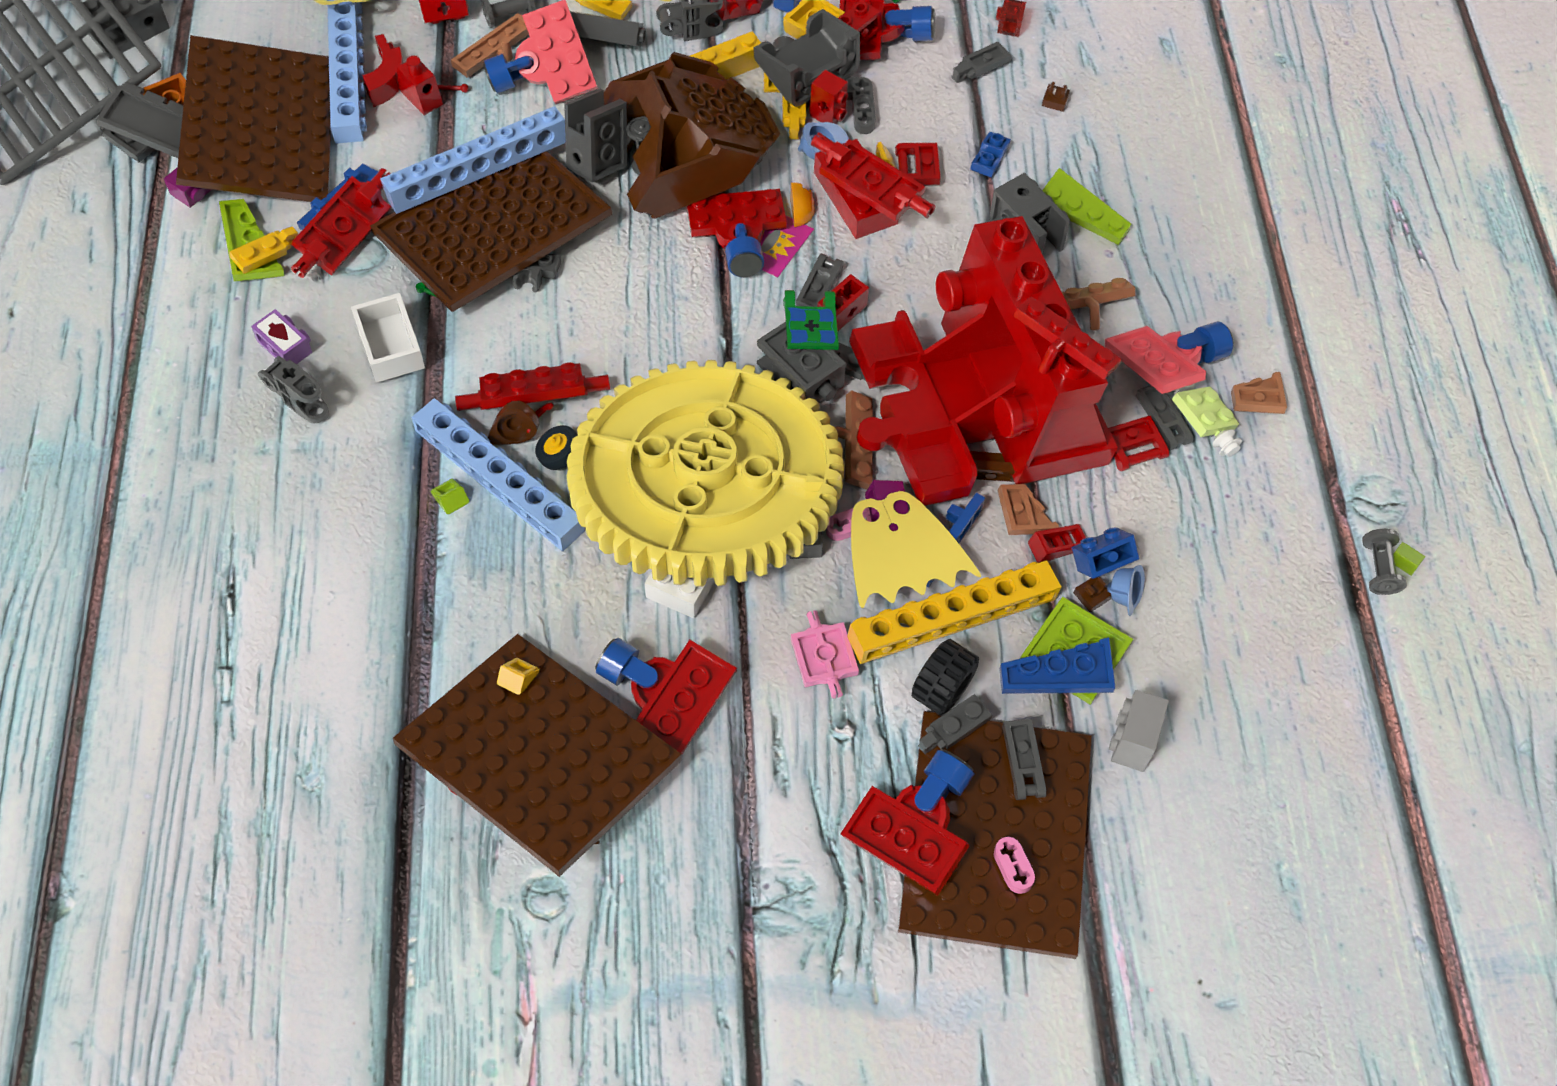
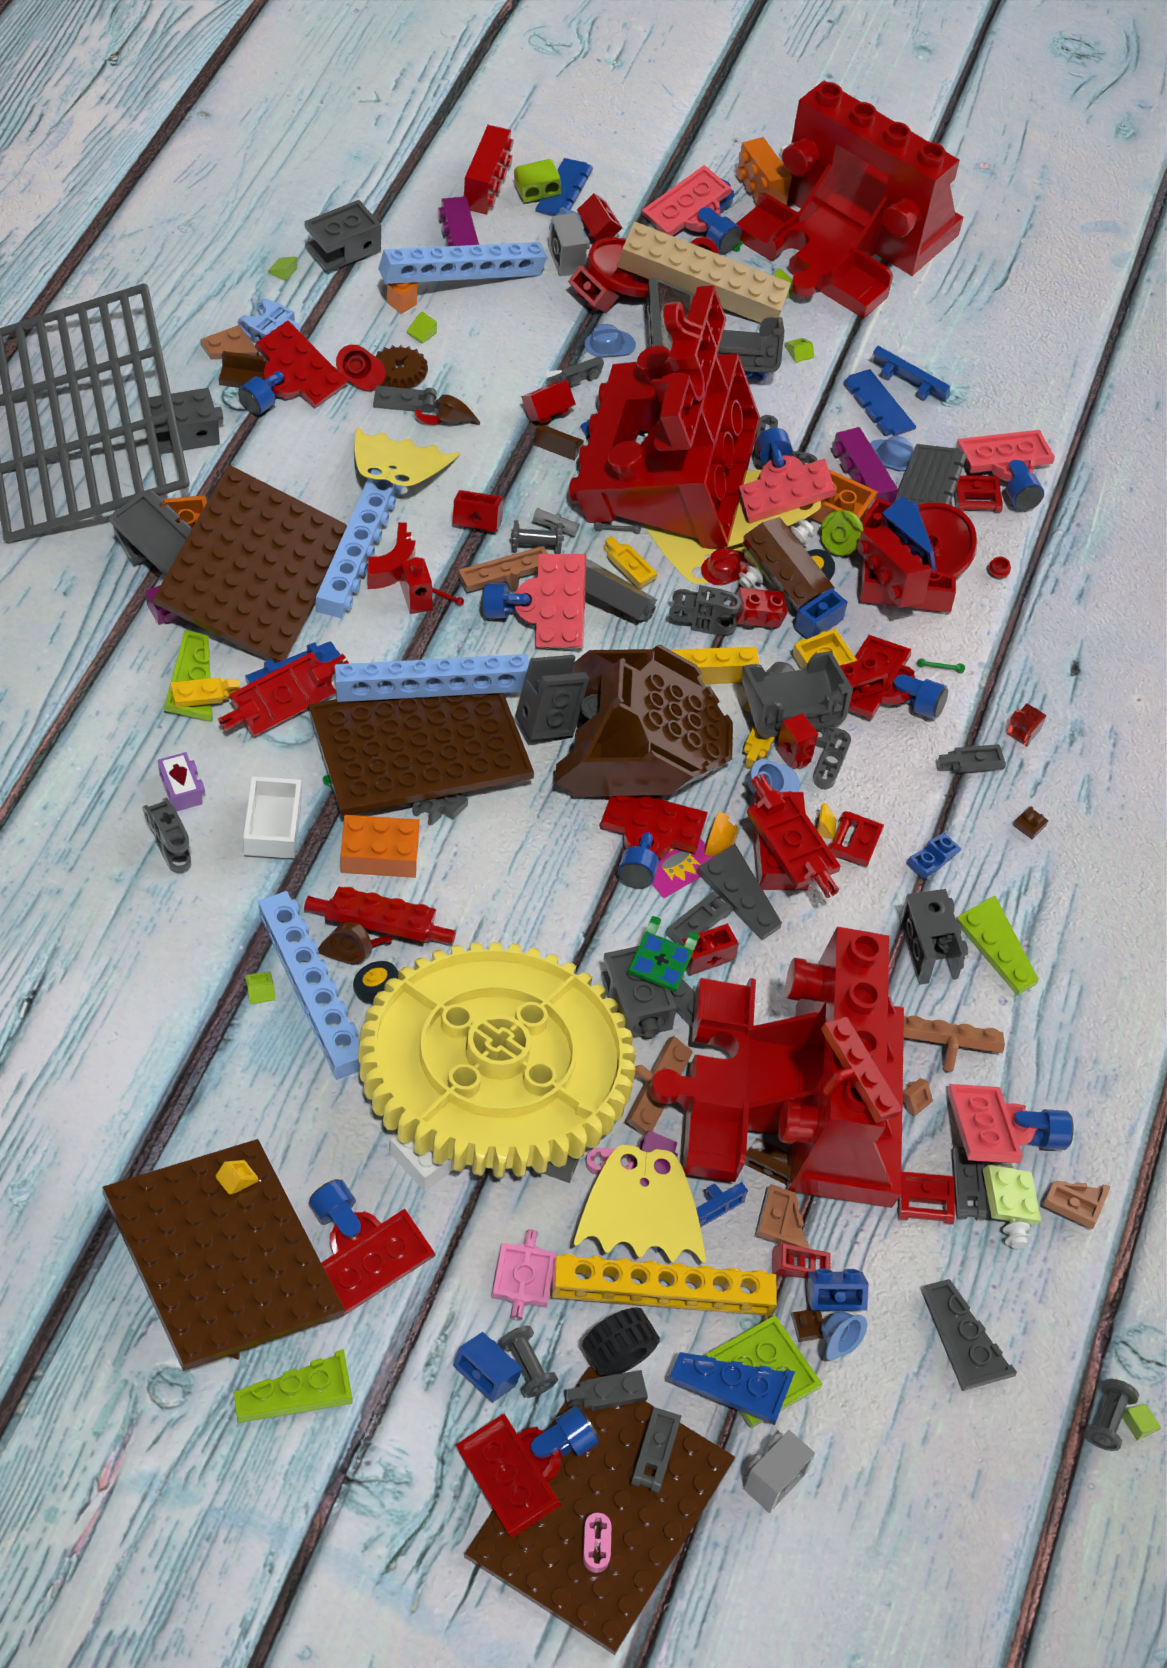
camera: 20 degrees right, 5 degrees down
(500, 326) = (380, 846): none -> orange brick
(681, 840) = (308, 1389): none -> lime wing
(832, 238) = (737, 885): none -> dark grey wing
(837, 749) = (487, 1366): none -> blue brick
(868, 730) = (537, 1379): none -> dark grey hose
(1240, 558) = (969, 1347): none -> dark grey wing

